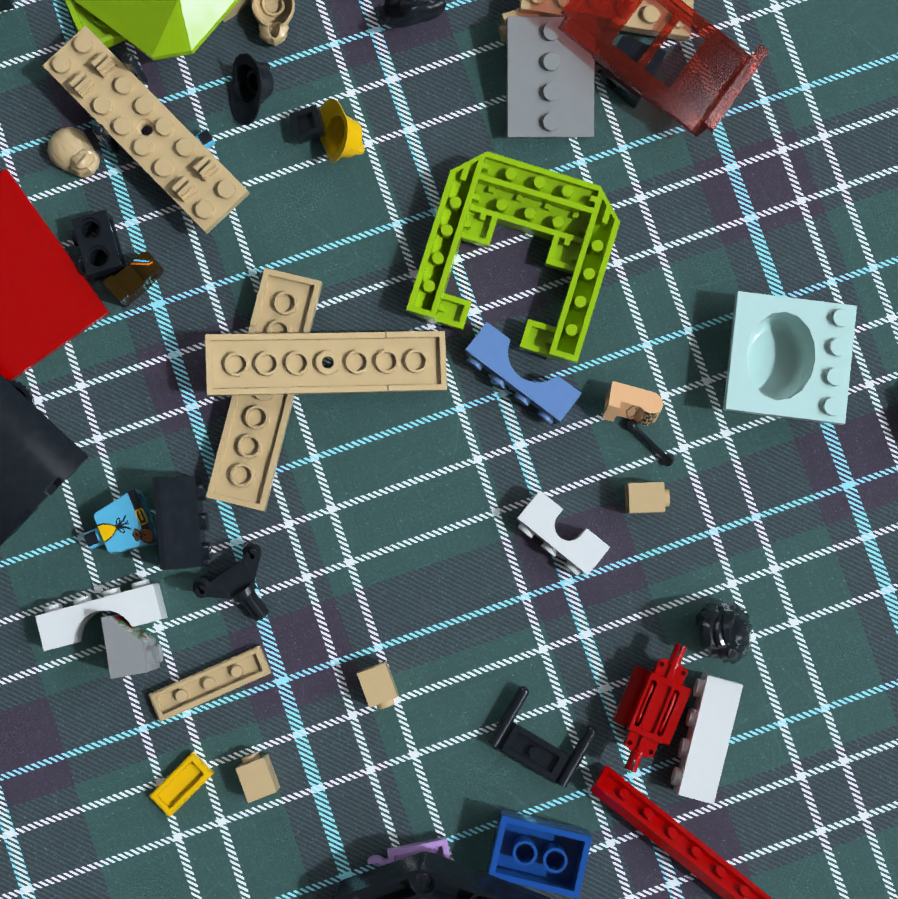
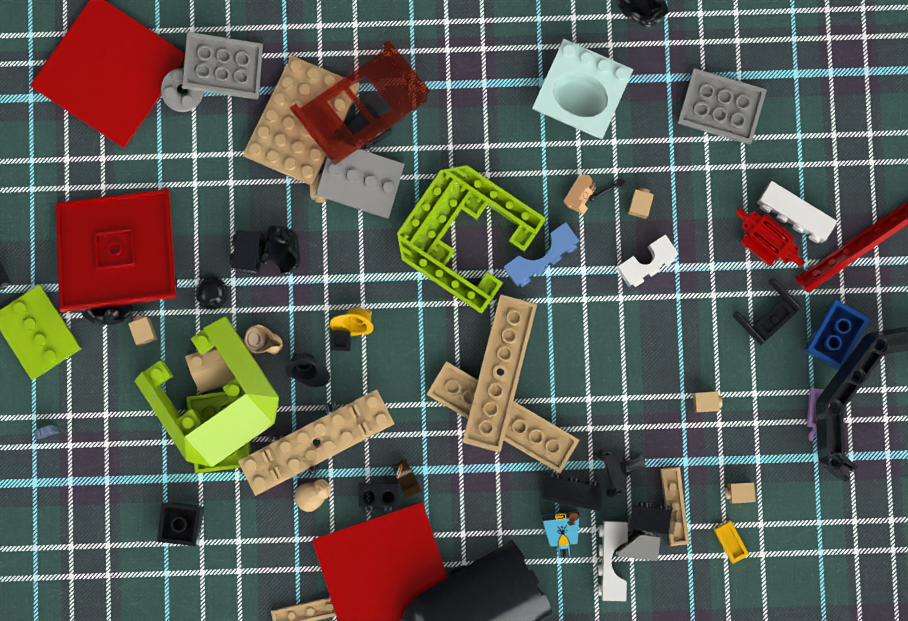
camera: 70 degrees left, 0 degrees up
(176, 655) = (653, 519): none -> black brick
(725, 631) = (736, 181): black hair -> none
(832, 577) = (722, 106): none -> light grey plate

